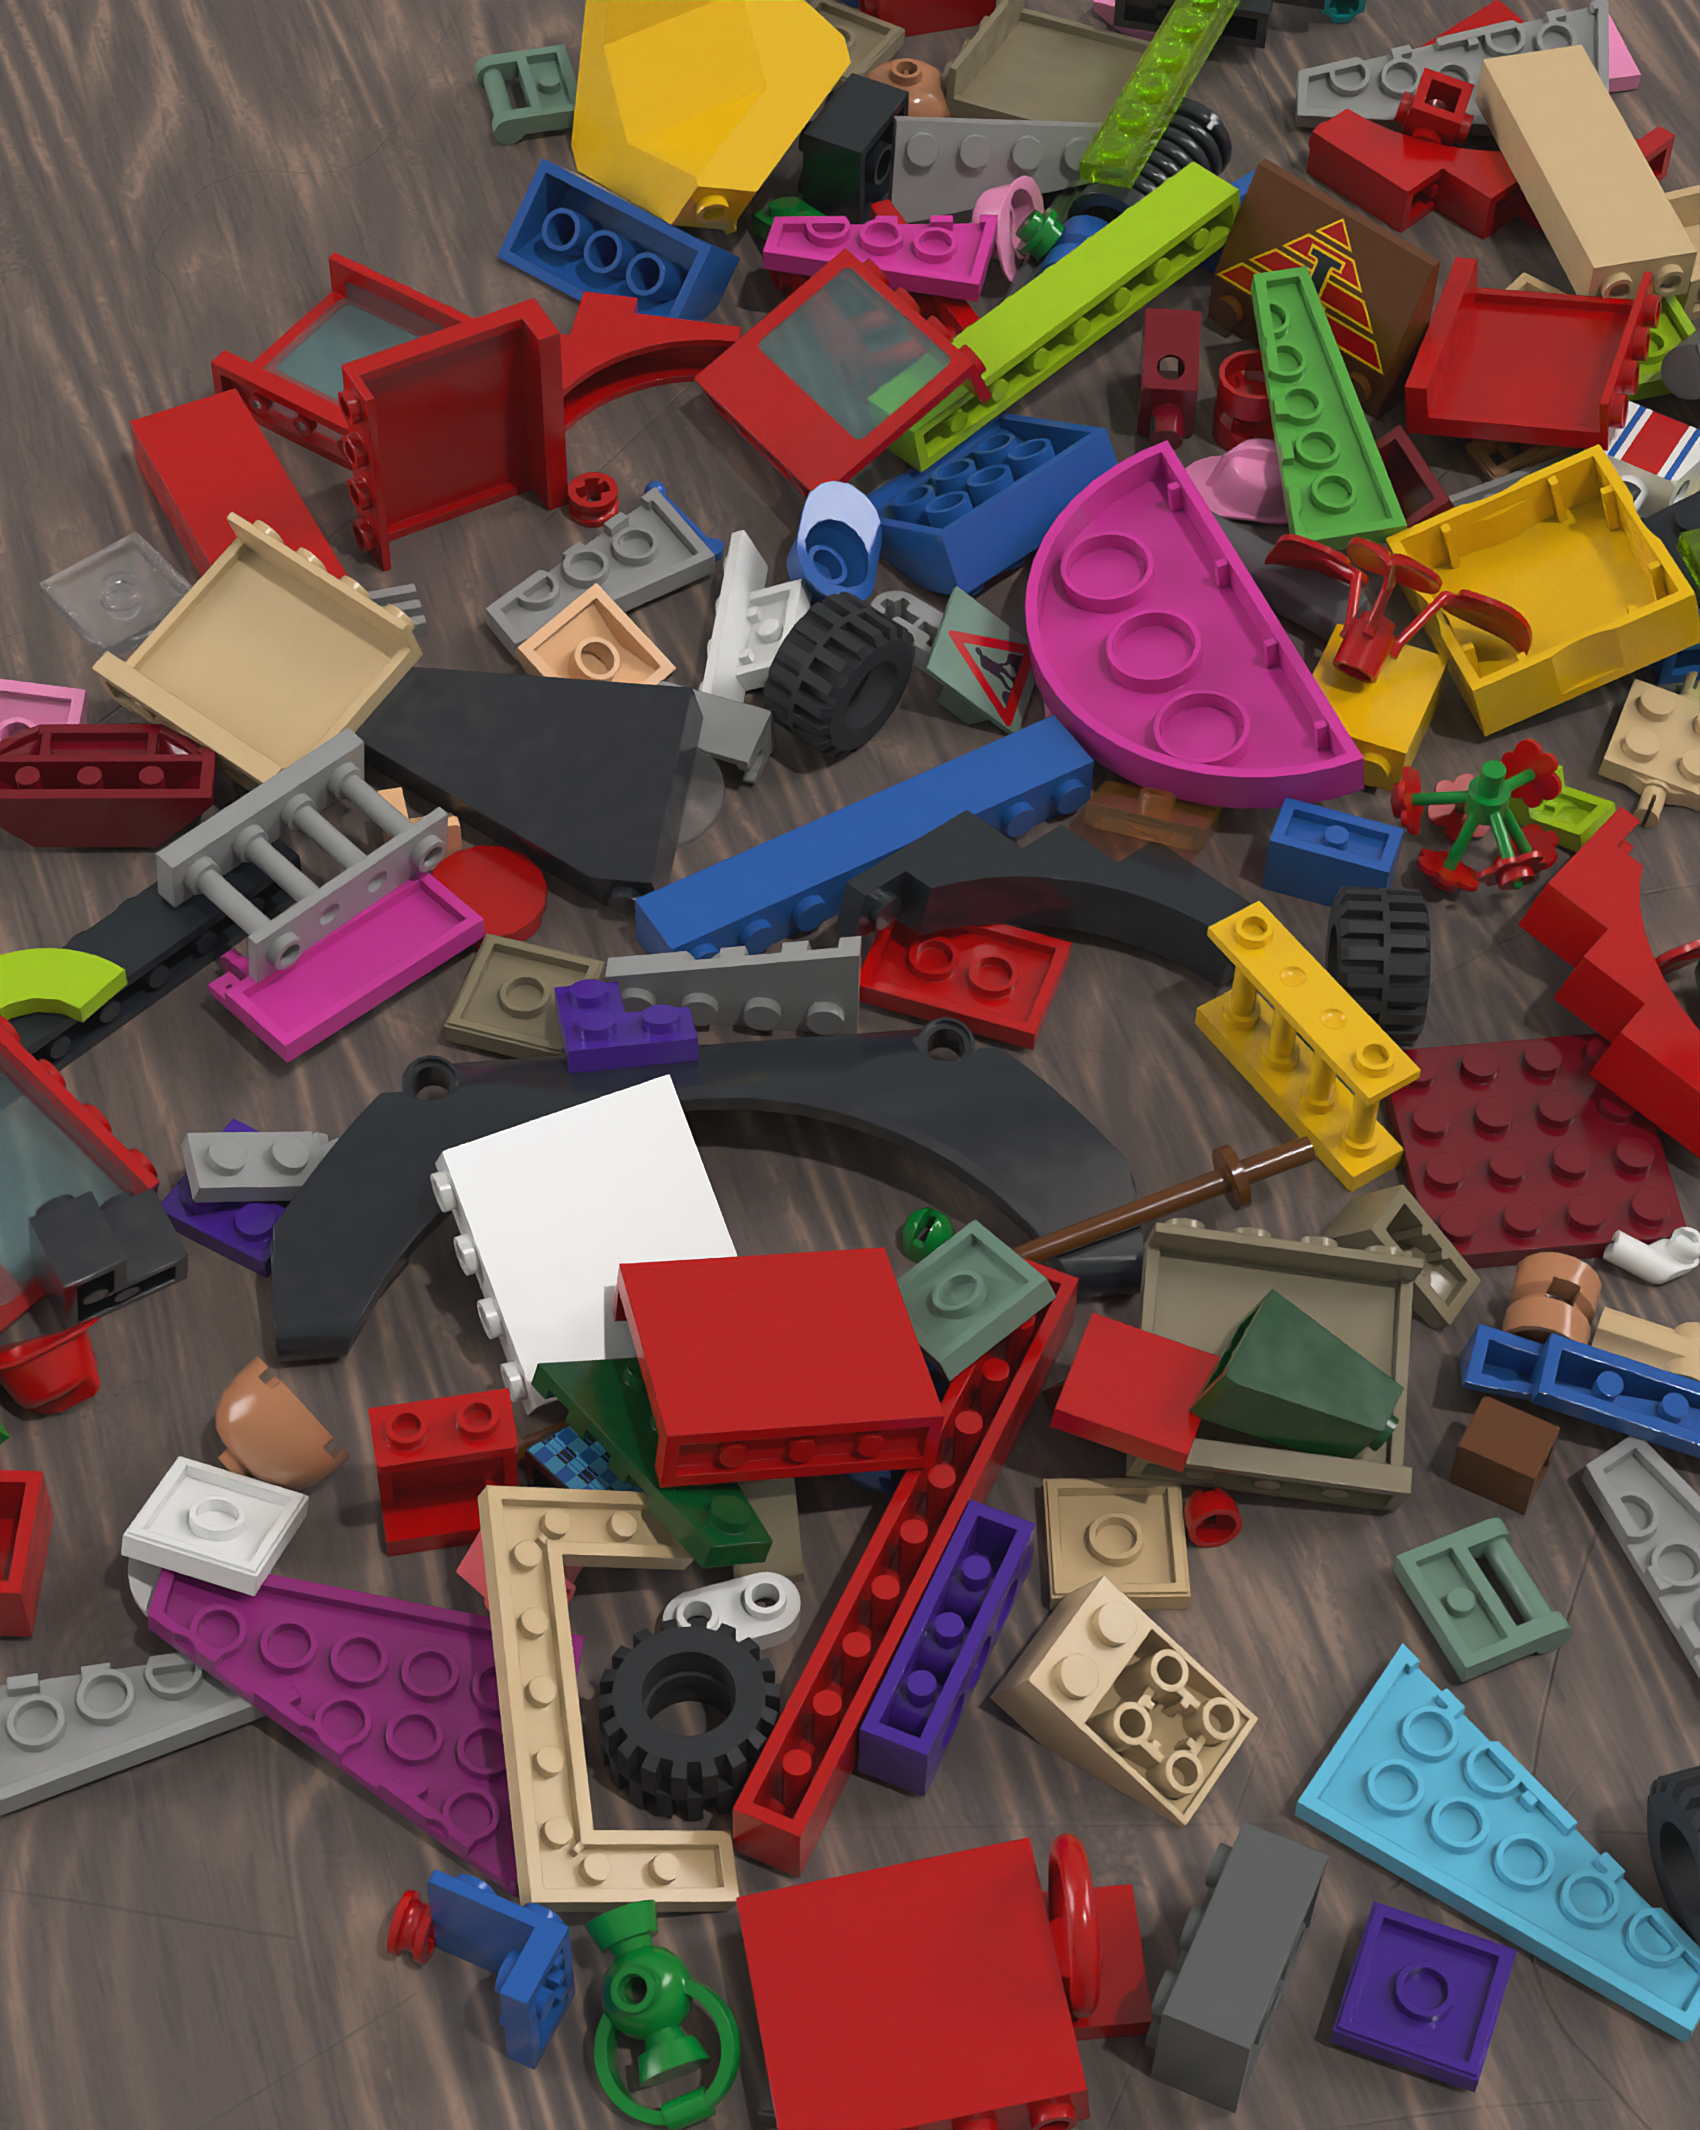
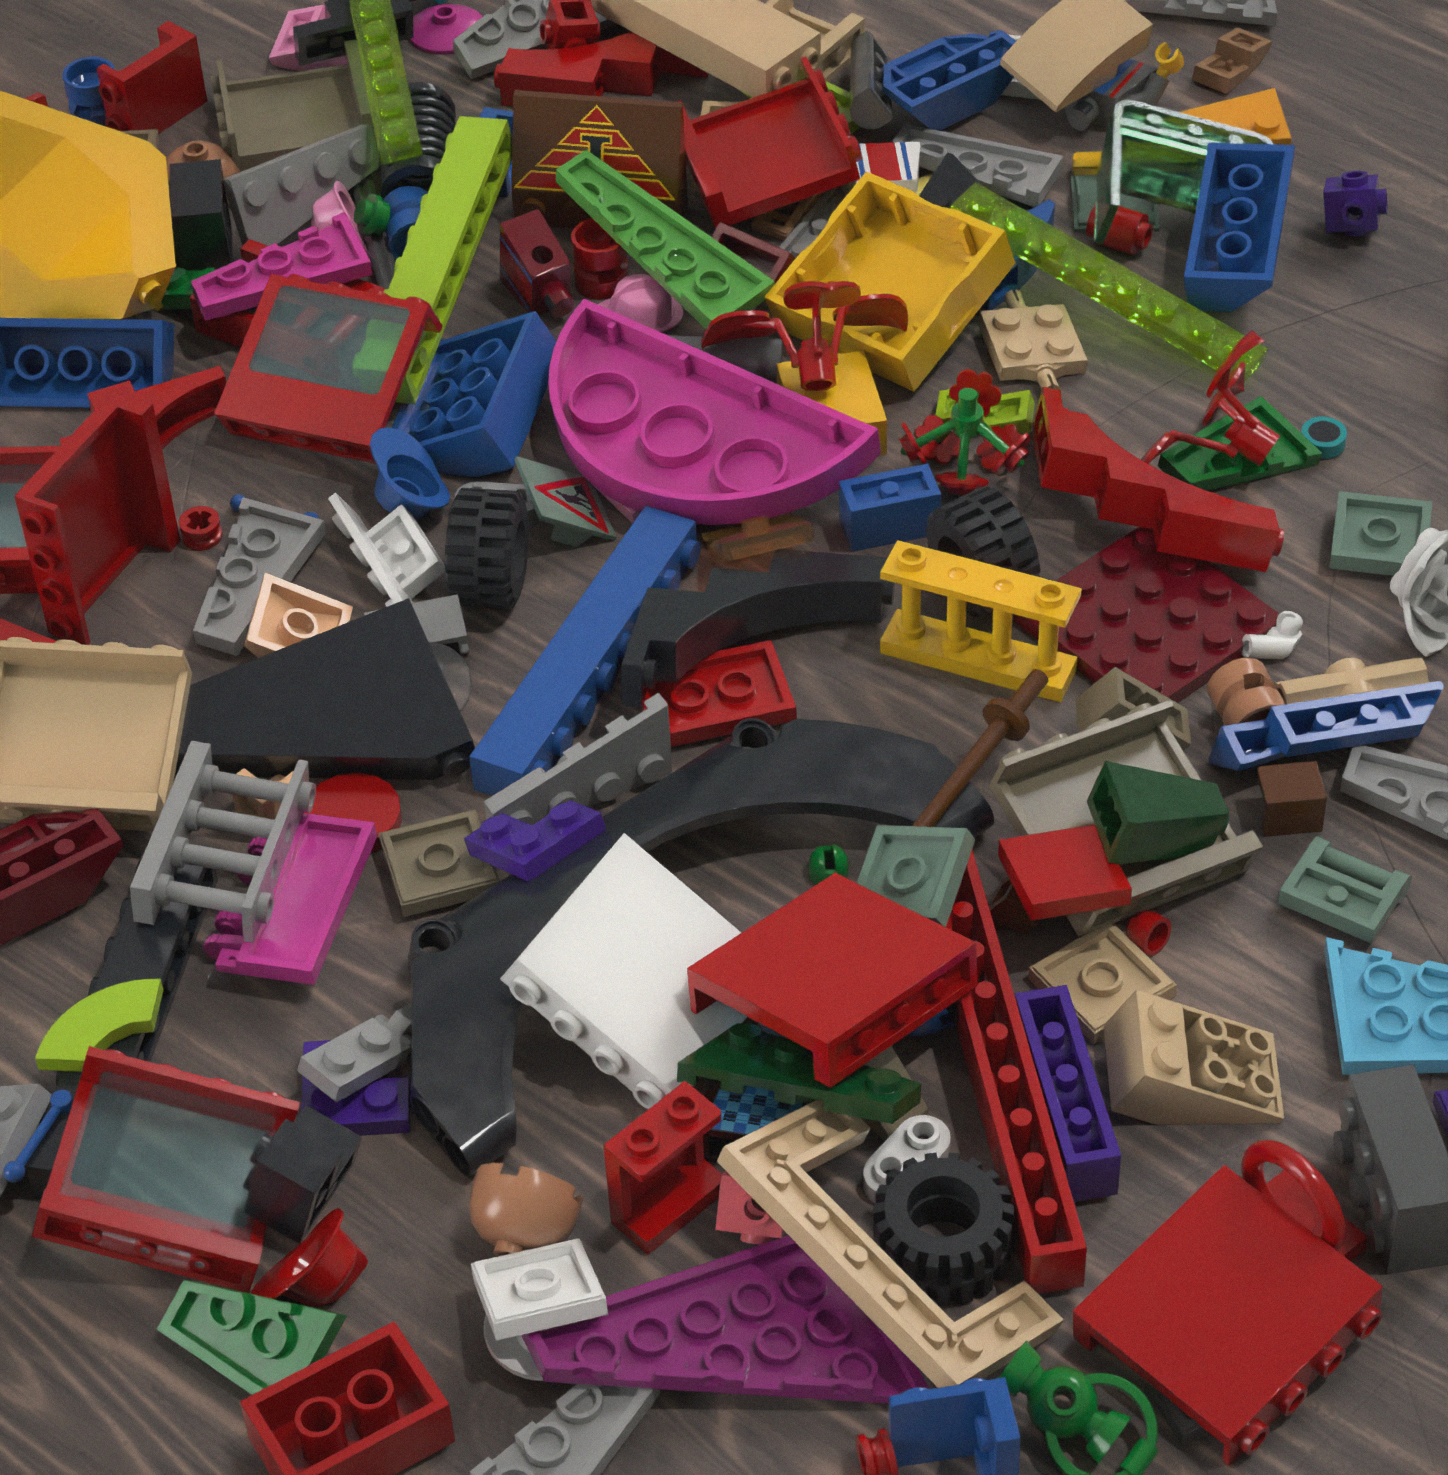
camera: 30 degrees left, 5 degrees down
(1311, 45) = (440, 25): none -> dark pink dish

